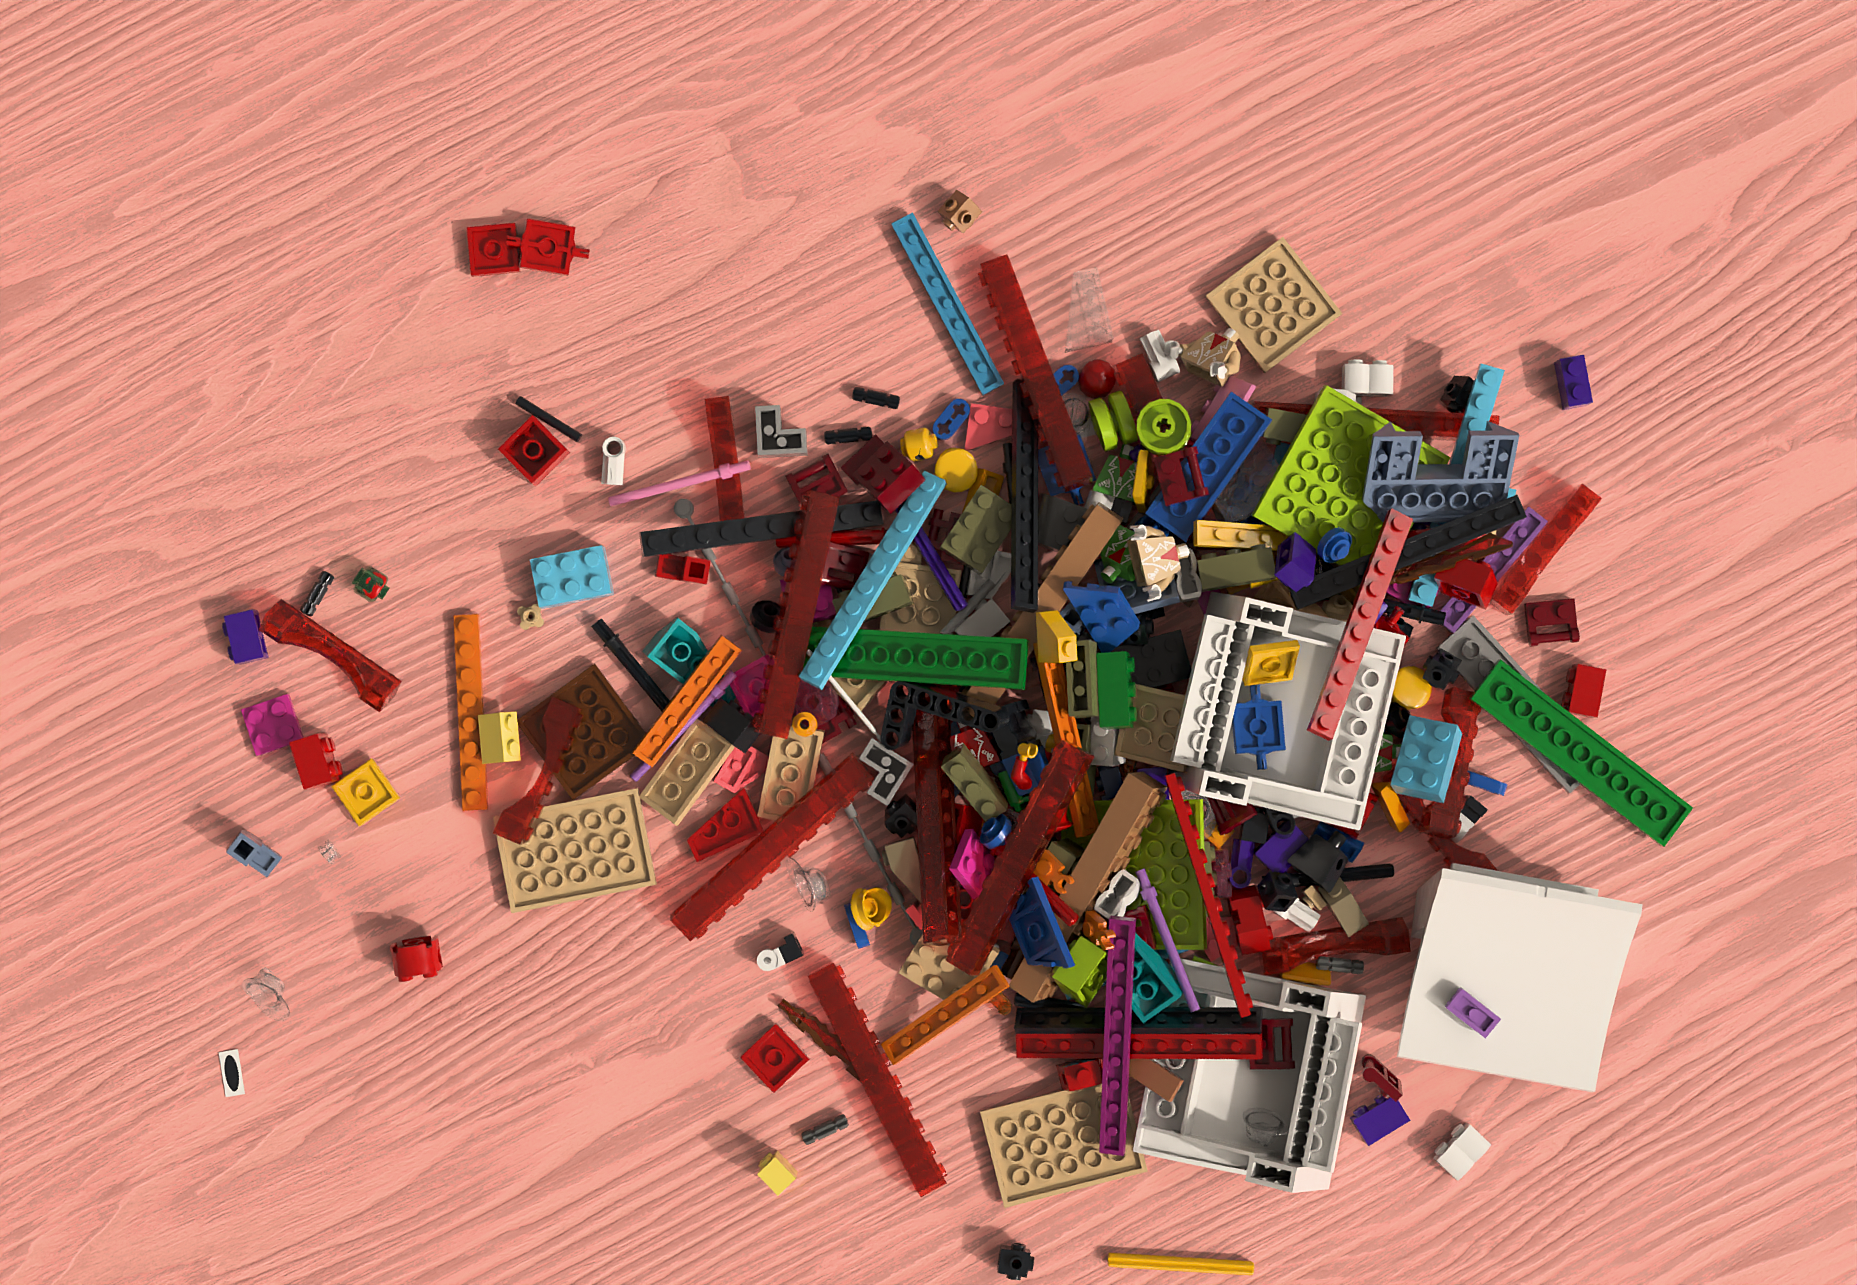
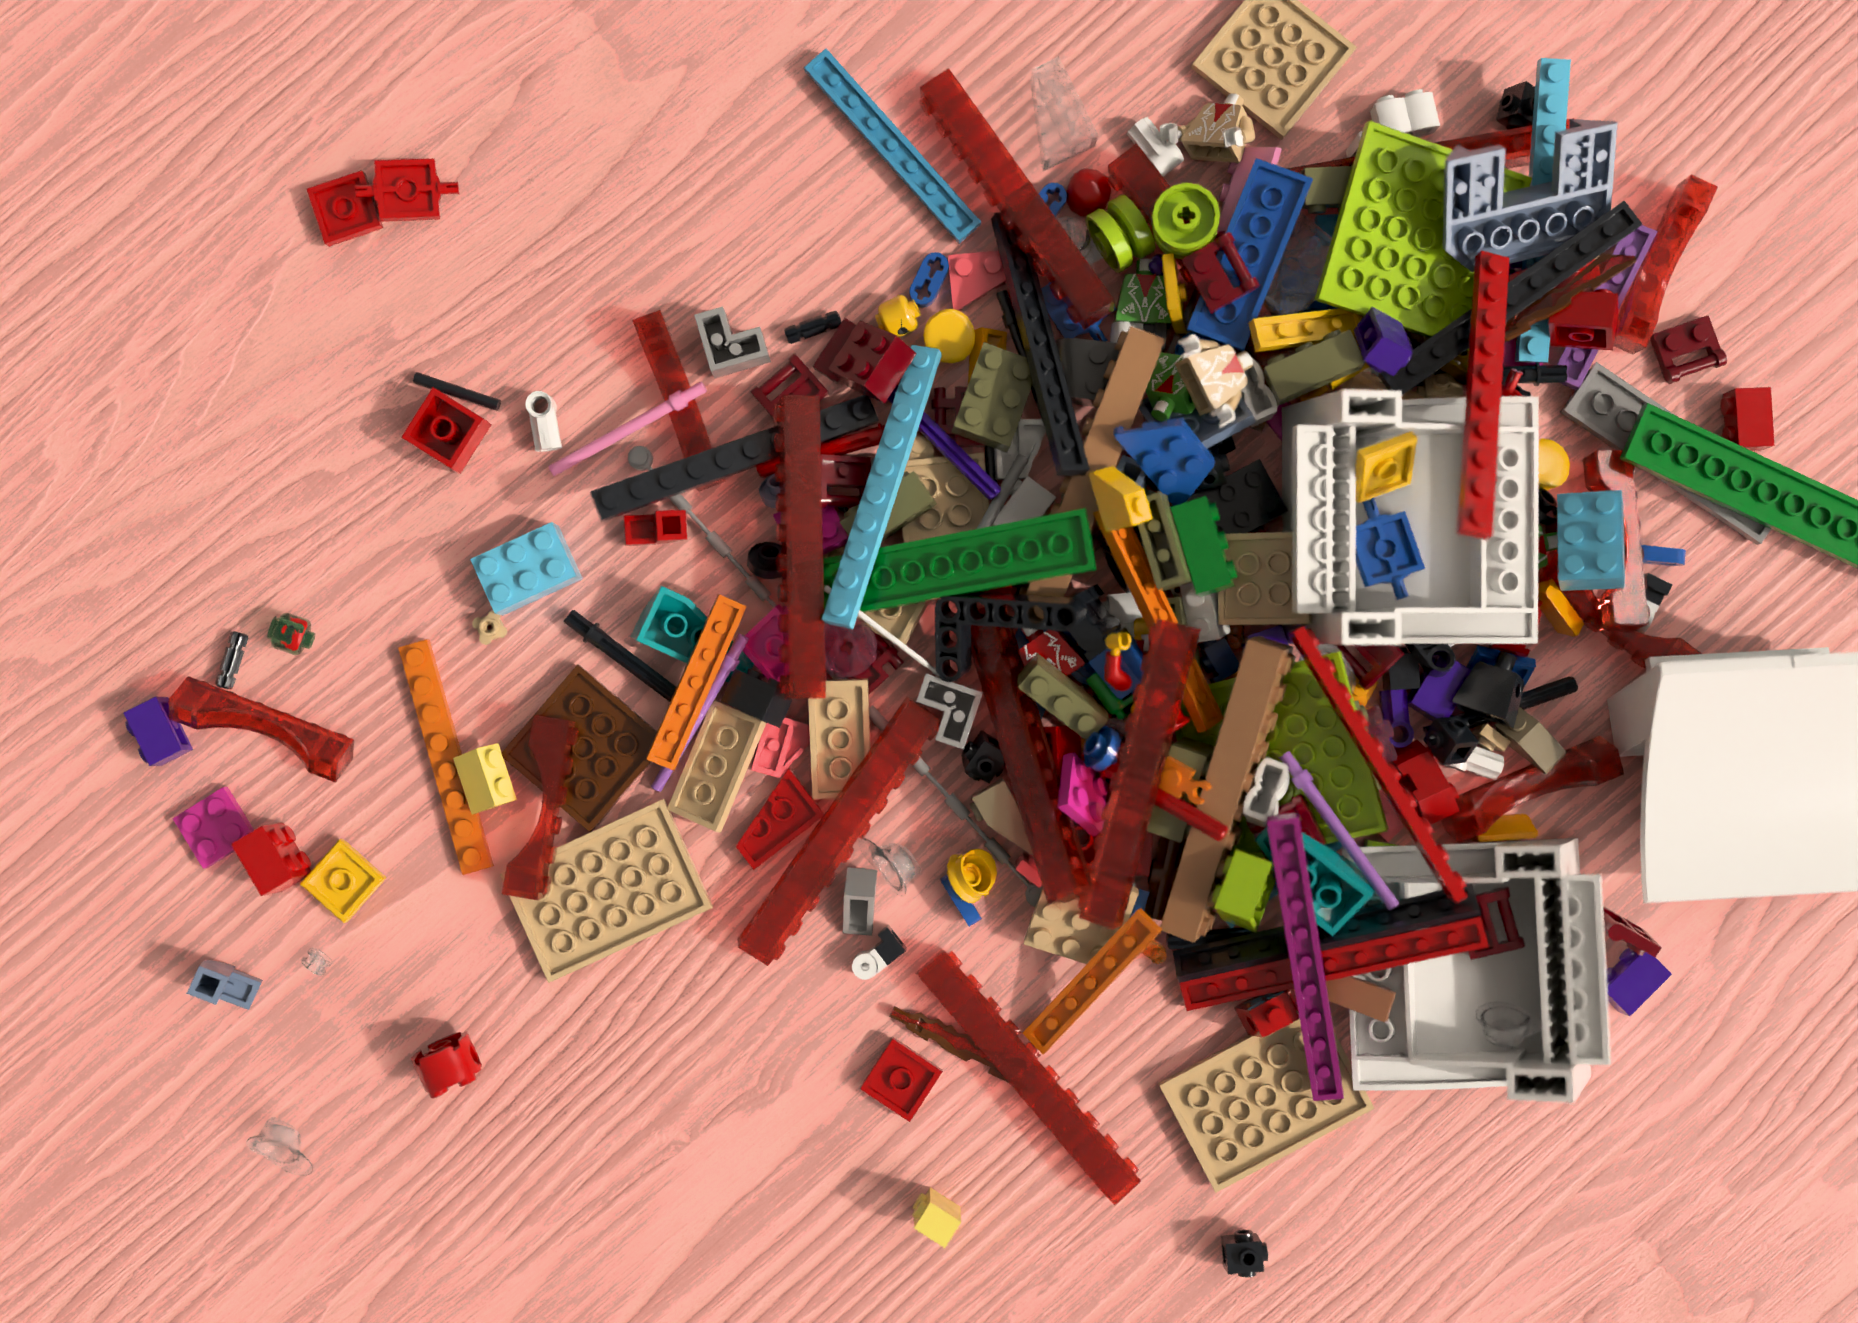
camera: 10 degrees left, 0 degrees up
(231, 1073) = (263, 1251): sticker -> none
(775, 907) = (859, 901): none -> light grey slope
(812, 724) = (832, 675): light orange plate -> none
(825, 1129) = (980, 1149): dark grey axle -> none
(876, 398) = (835, 275): black axle -> none
(959, 212) = (880, 34): medium nougat brick -> none
(1038, 929) = (1184, 855): blue wing -> none
(1095, 930) = (1252, 838): orange plate -> none
(1175, 1263) = (1439, 1208): yellow axle -> none
(1334, 545) = (1424, 310): blue plate -> none
(1339, 965) = (1540, 810): dark grey axle -> none
(1441, 669) = (1577, 424): black brick -> none
(1461, 1151) = (1738, 995): white brick -> none
(1472, 1012) = (1728, 829): medium lavender plate -> none
(1573, 382) = (1646, 63): dark purple brick -> none

